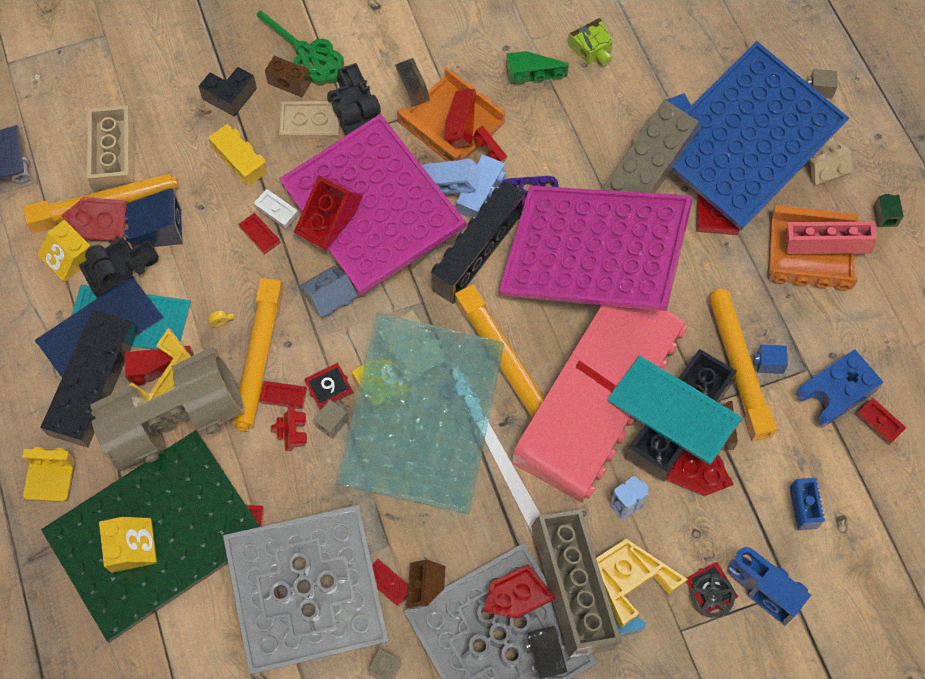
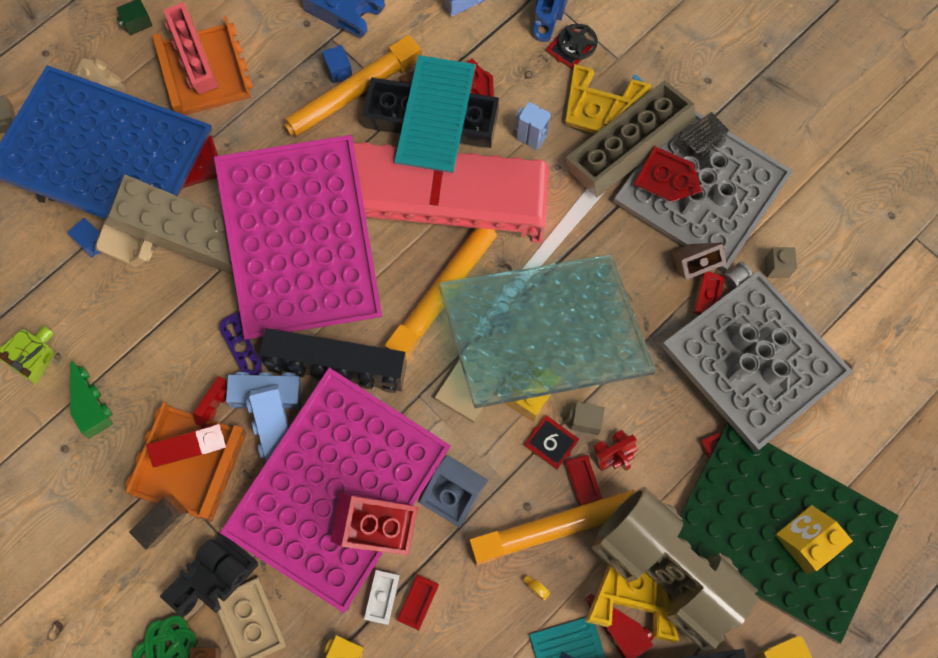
camera: 120 degrees left, 5 degrees up
(393, 619) = (737, 275): none -> light grey bush

